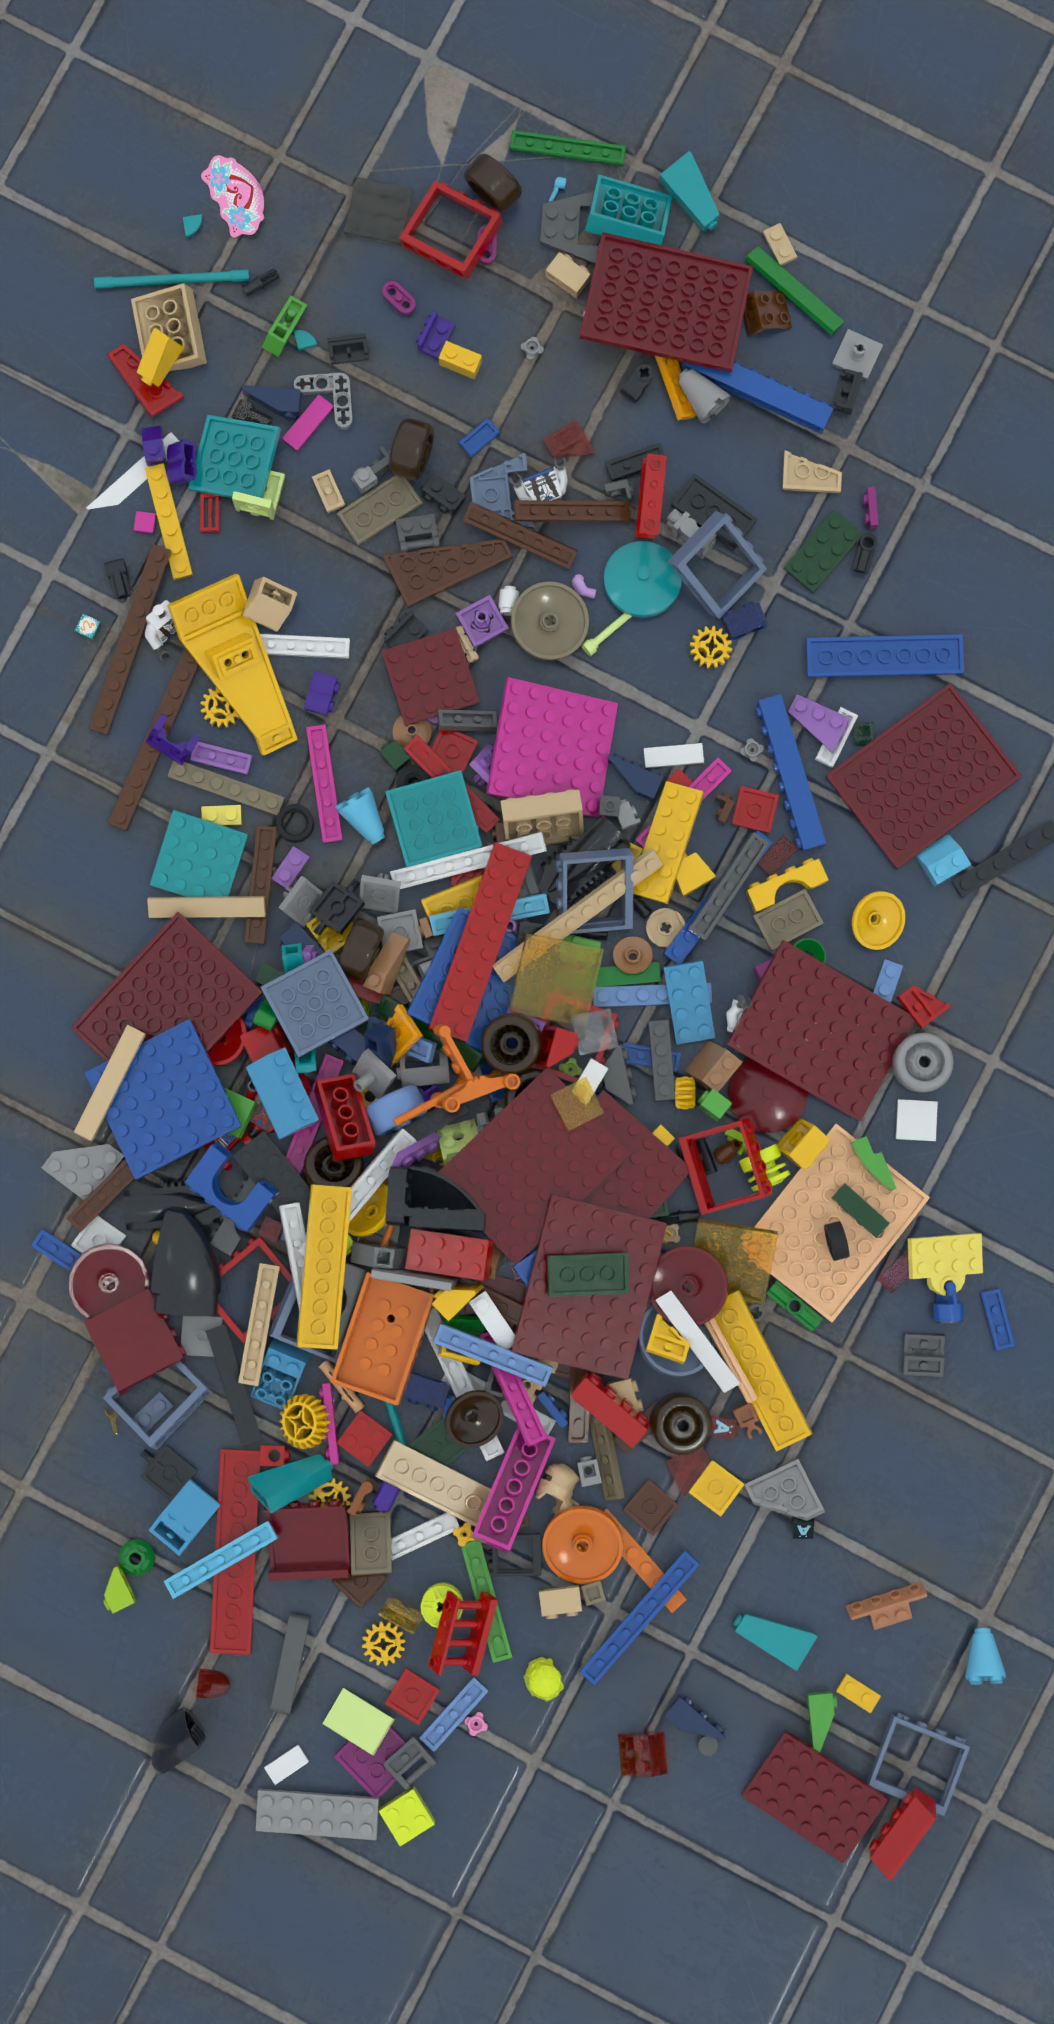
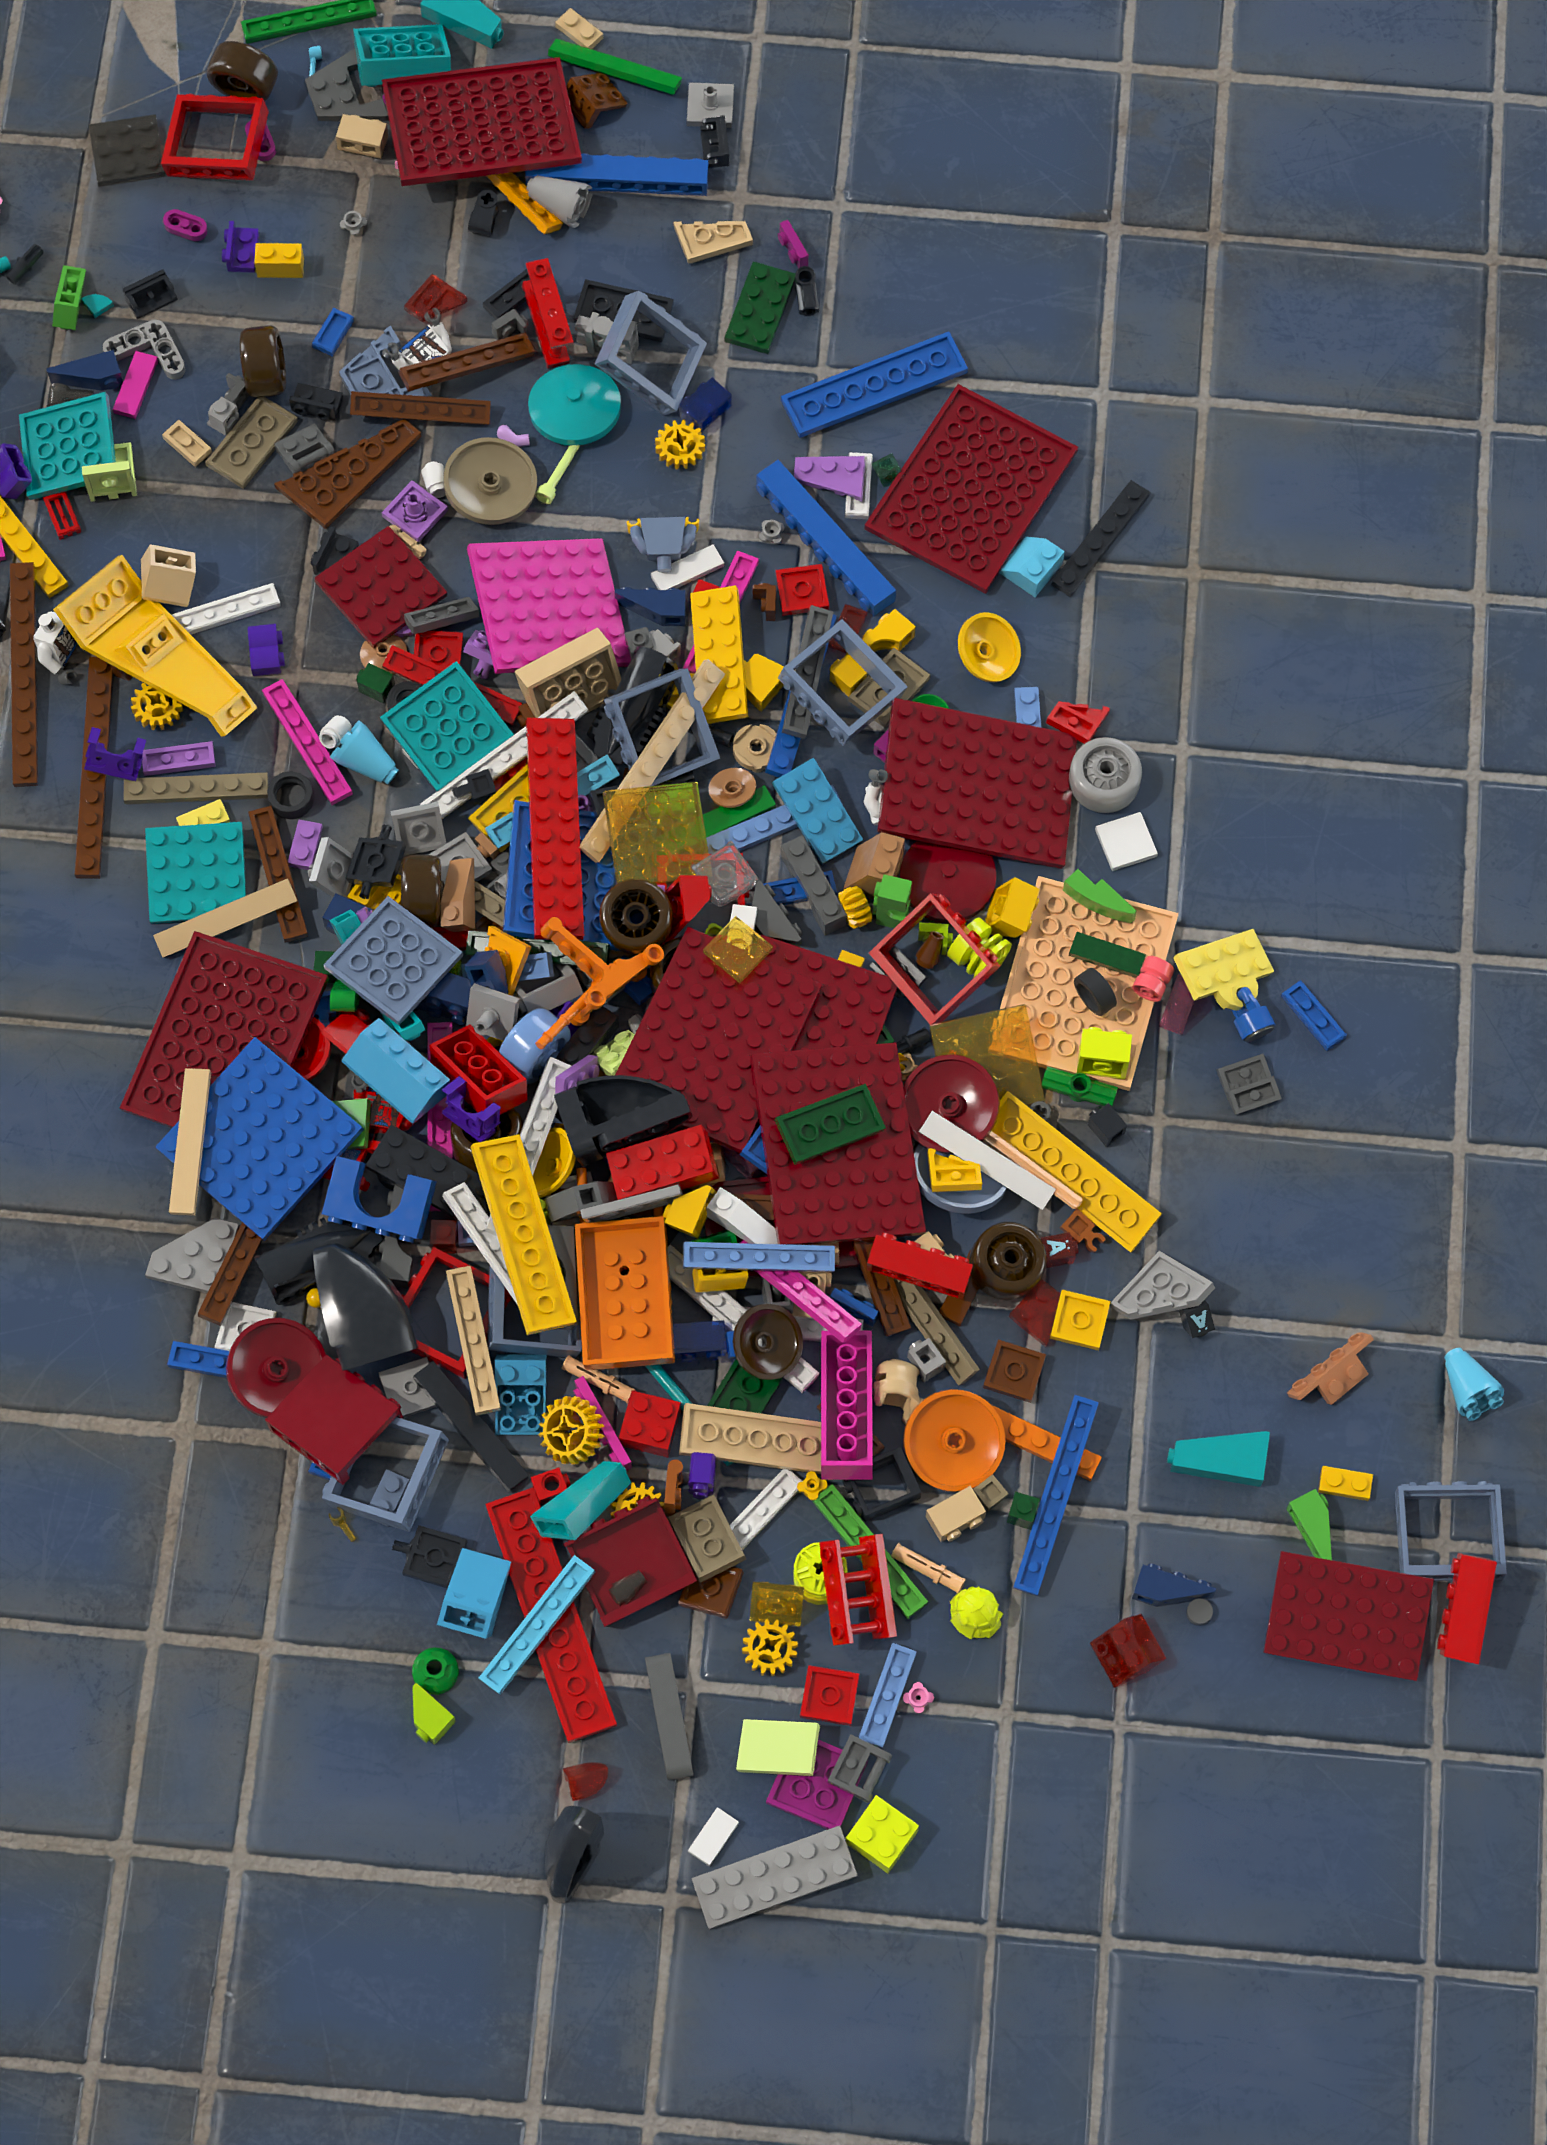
camera: 20 degrees left, 15 degrees down
(297, 1558) = (627, 1587): none -> clear smoke cone
(326, 1163) = (479, 1124): none -> dark purple piece
(348, 786) = (334, 731): none -> white brick
(439, 878) = (478, 784): none -> black plate
(539, 1650) = (928, 1568): none -> light nougat pin
(611, 1617) = (1023, 1510): none -> dark green brick
(664, 725) = (663, 538): none -> sand blue torso
(778, 895) = (866, 659): none -> sand blue window
(802, 1343) = (1106, 1124): none -> black brick
(821, 1293) = (1104, 1053): none -> neon yellow brick
(886, 1246) = (1152, 979): none -> coral wheel

